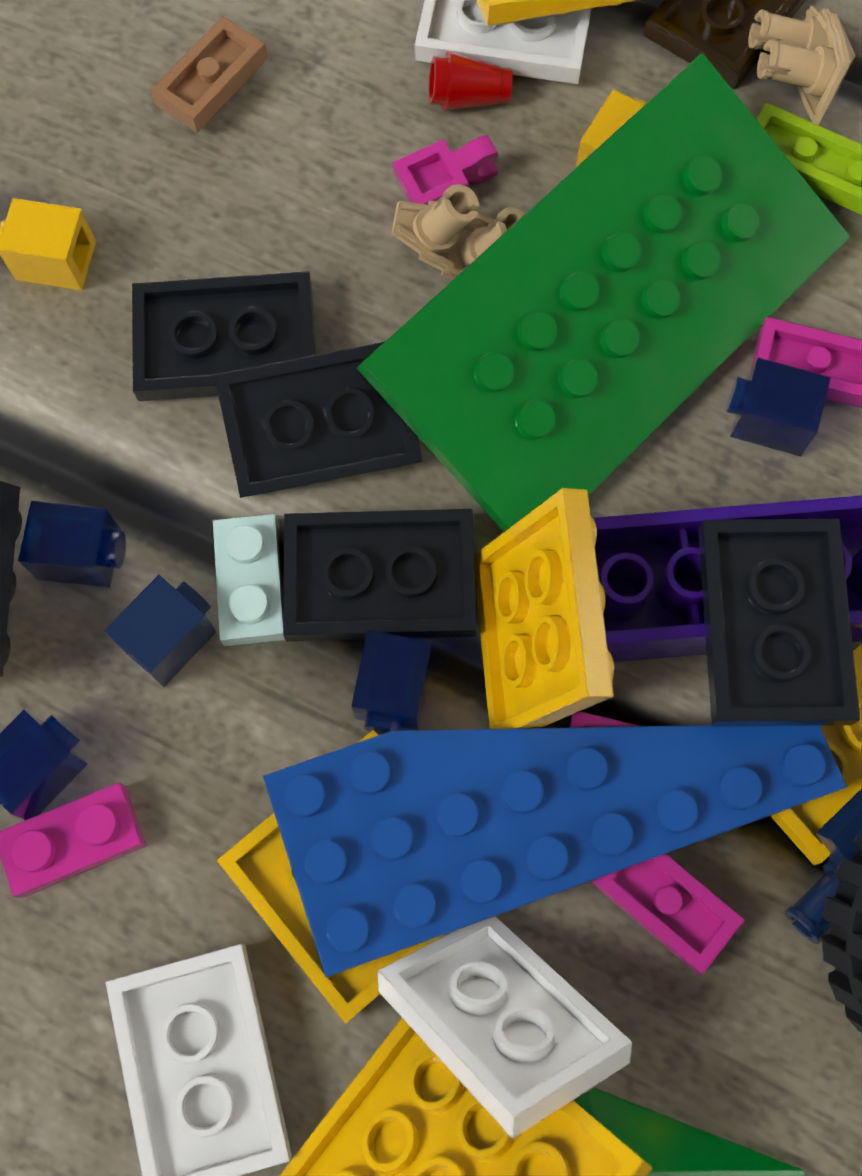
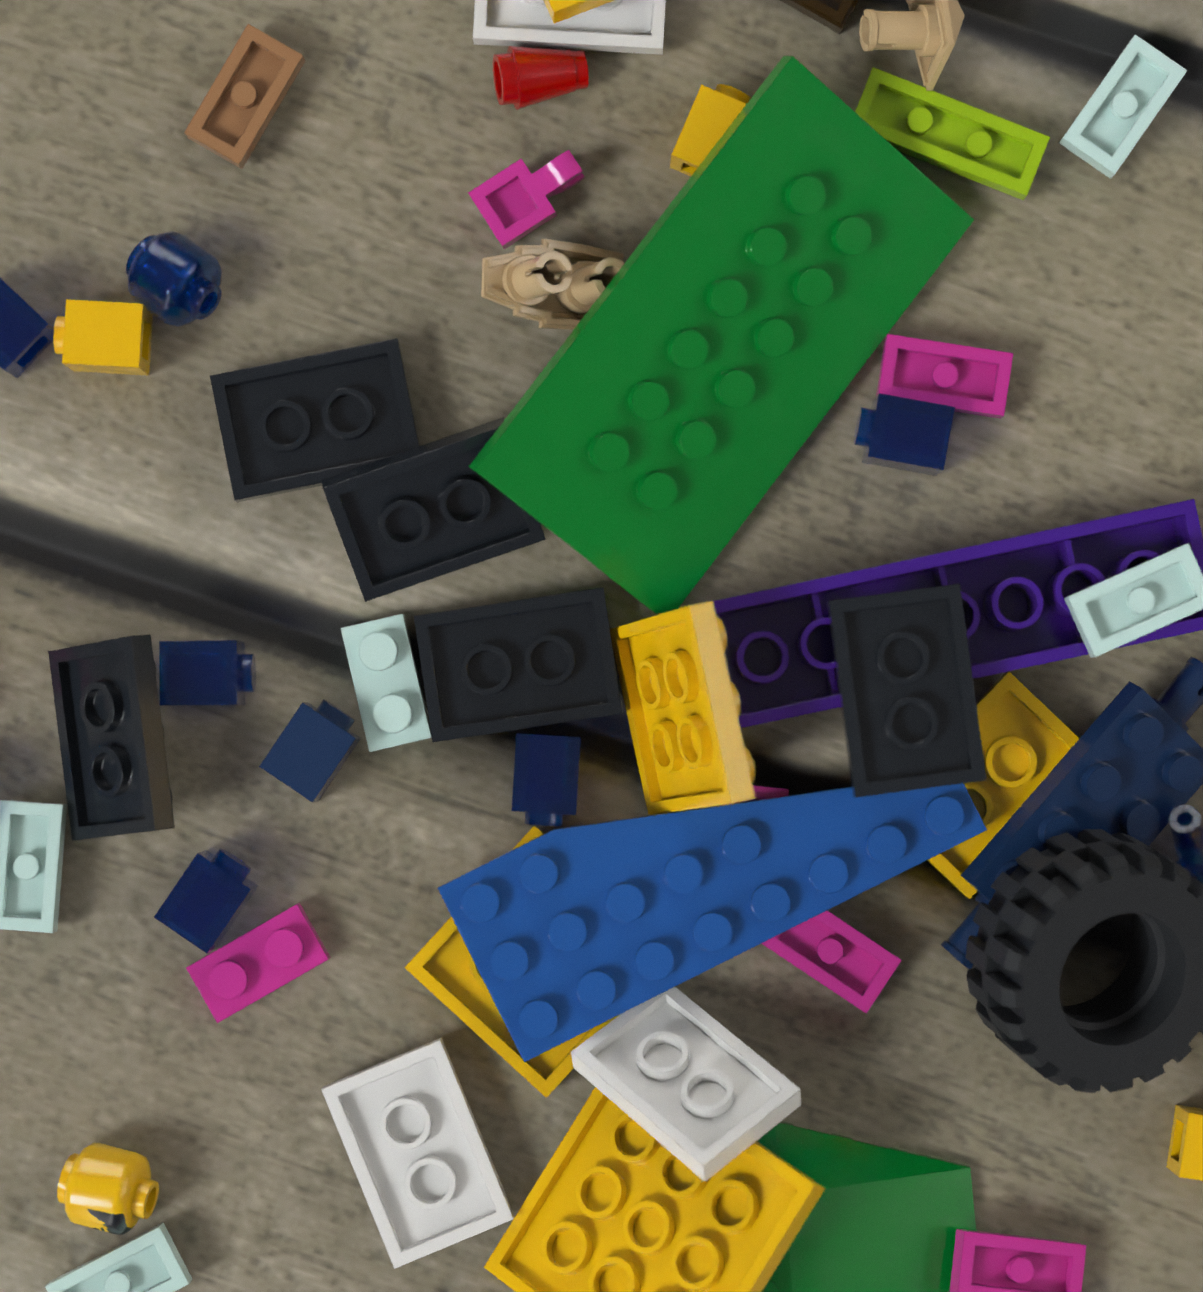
camera: 10 degrees left, 15 degrees up
(117, 200) = (174, 278): none -> clear blue head

